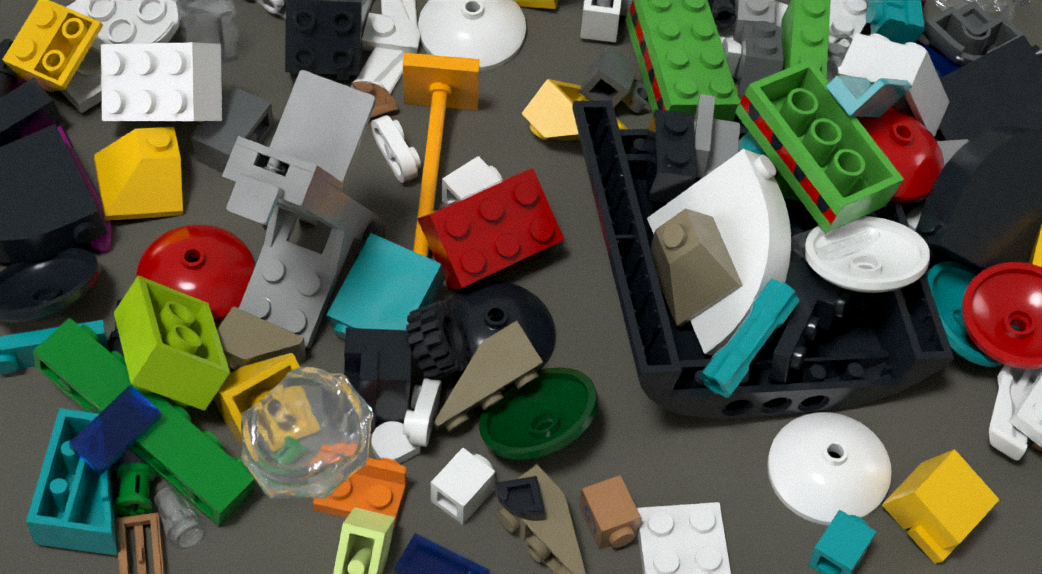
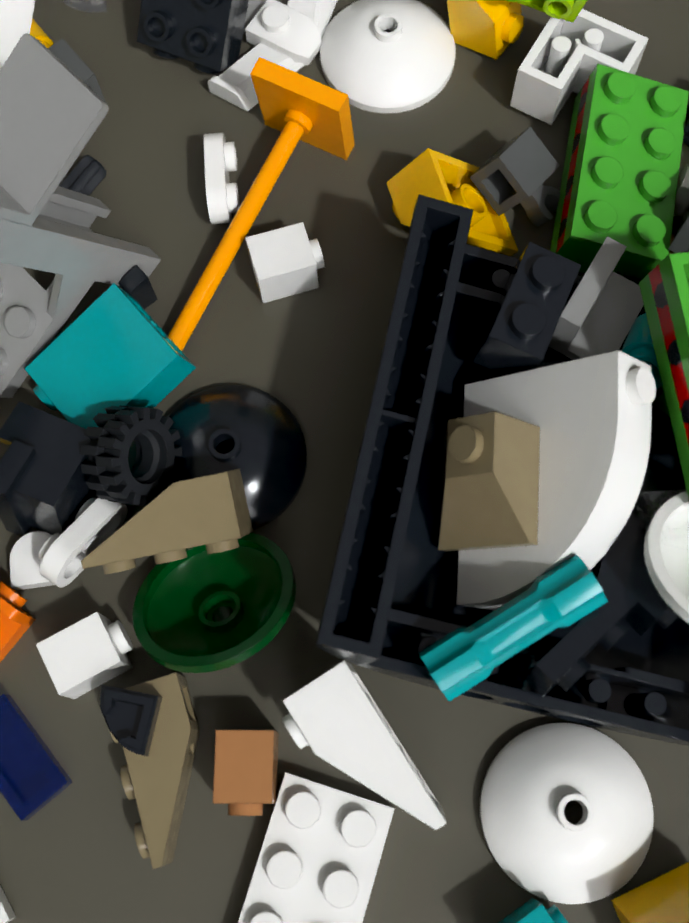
camera: 30 degrees right, 15 degrees up
(385, 102) = (224, 107): medium nougat tile -> none
(491, 229) = (269, 326): red brick -> none
(684, 460) = (353, 735): none -> white slope

